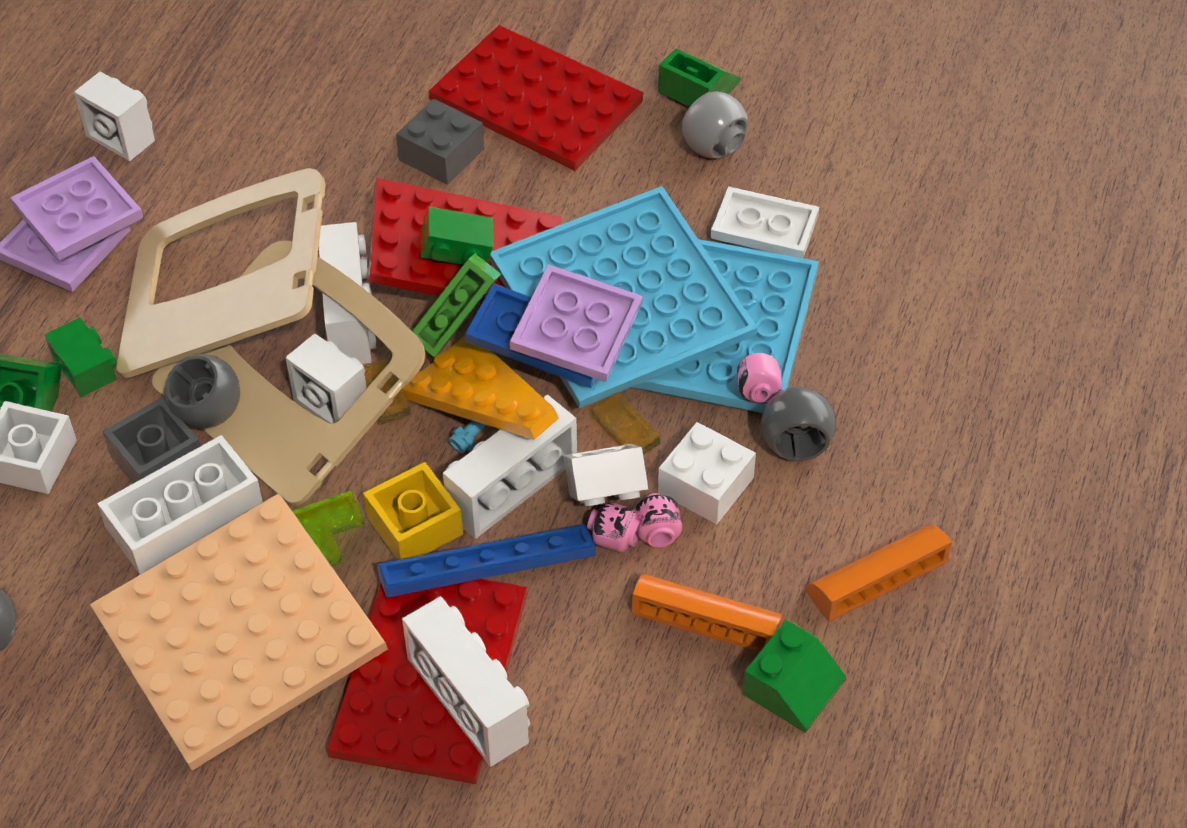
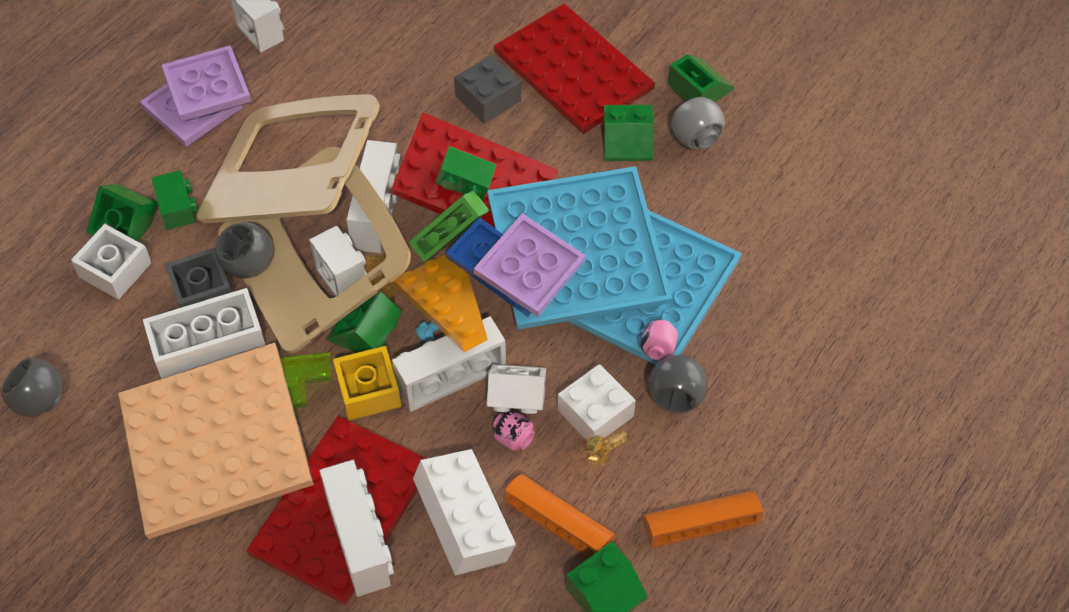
camera: 15 degrees right, 5 degrees up
(386, 448) = (366, 325): none -> green slope
(485, 560) = (408, 433): blue tile -> none
(590, 633) = (463, 512): none -> white brick
(625, 423) = (549, 351): clear yellow plate -> none
(632, 155) = (628, 132): none -> green slope
(658, 520) = (547, 433): bright pink head -> none
(730, 518) = (603, 446): none -> clear yellow bar
(765, 222) = (712, 211): white plate -> none

